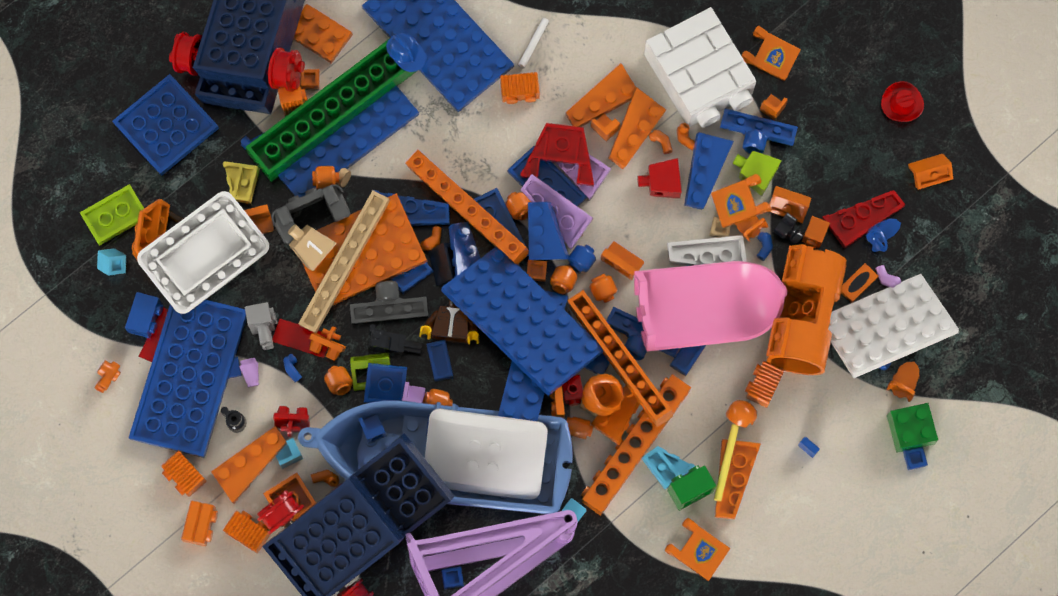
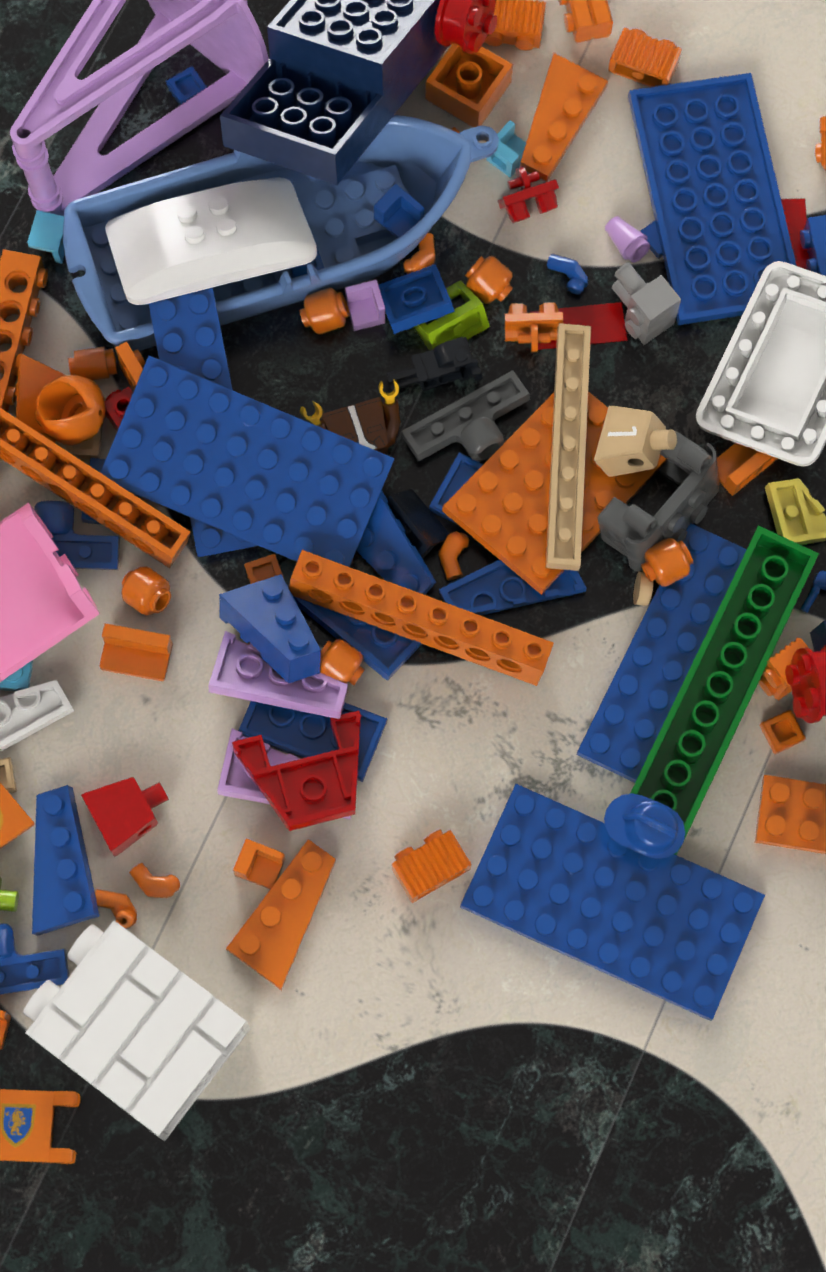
camera: 155 degrees right, 0 degrees up
(234, 420) = (611, 161): black piece -> none
(439, 360) = (350, 376): blue tile -> none
(536, 37) = (446, 962): white bar -> none
(563, 279) = (214, 576): orange head -> none
(582, 258) = (200, 624): blue head -> none
(637, 124) = (205, 895): orange wing -> none

